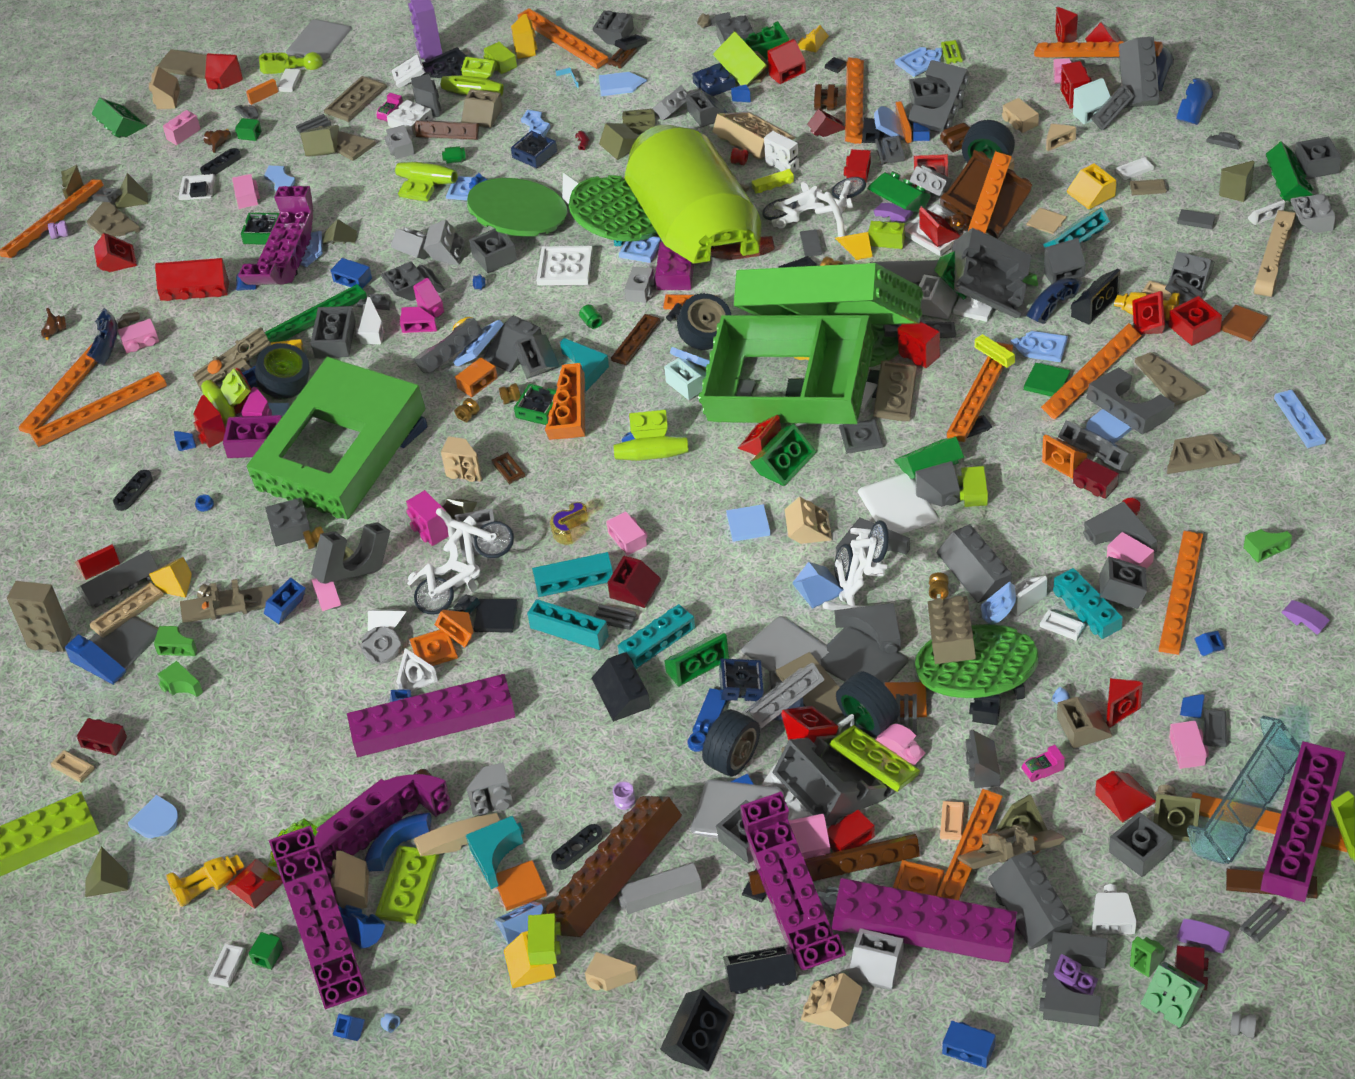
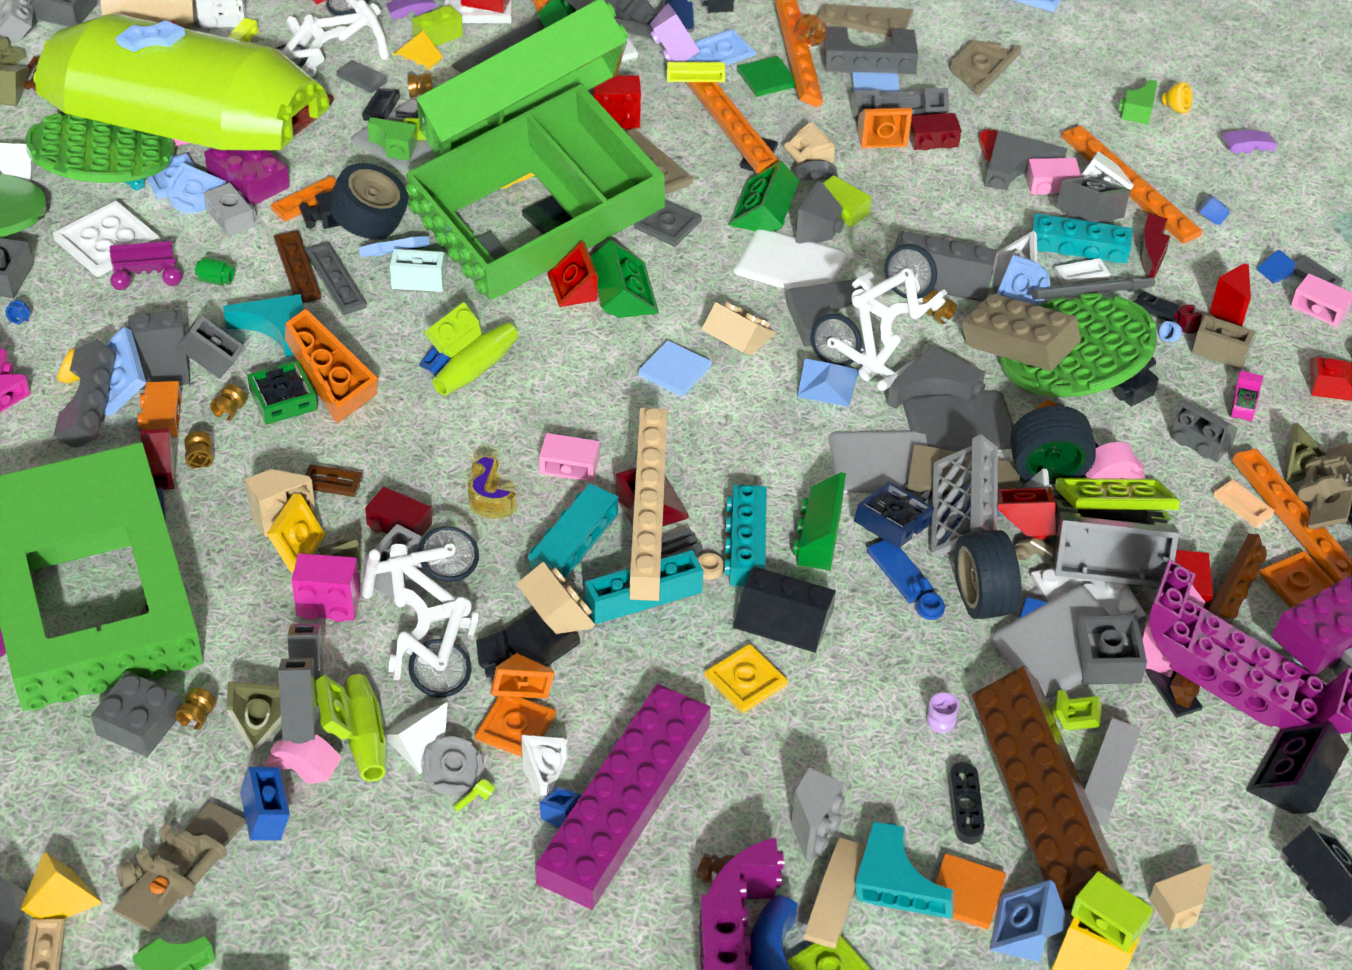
camera: 55 degrees left, 0 degrees up
(364, 592) = (355, 715): none -> lime plate
(380, 666) = (482, 788): none -> hand
(438, 402) = (160, 456): none -> dark red slope
(449, 481) = (295, 531): none -> yellow tile
(509, 506) = (393, 508): none -> dark red brick
(515, 599) = (555, 600): none -> tan slope
(560, 286) = (140, 258): none -> magenta gear
(561, 707) = (746, 678): none -> yellow tile
(609, 579) = (648, 505): none -> tan brick
(618, 637) = (712, 565): none -> tan tile
(638, 257) = (187, 188): none -> light blue tile
(645, 358) = (335, 278): none -> dark grey tile
(675, 151) = (143, 36): none -> light blue tile
(688, 848) = (1077, 712): none -> lime bracket
(987, 458) = (815, 170): none -> dark grey tile
(1000, 440) = (811, 145): none -> tan piece
(1011, 318) = (673, 35): none -> lavender slope
(1077, 681) = (1170, 311): none -> piece
(1079, 652) = (1130, 284): none -> dark grey bar
(1100, 363) = (810, 30): none -> clear orange head
(1128, 638) = (1154, 244): none -> dark red slope
(1160, 574) = (1106, 169): none -> white slope
(1299, 558) = (1179, 97): none -> yellow brick

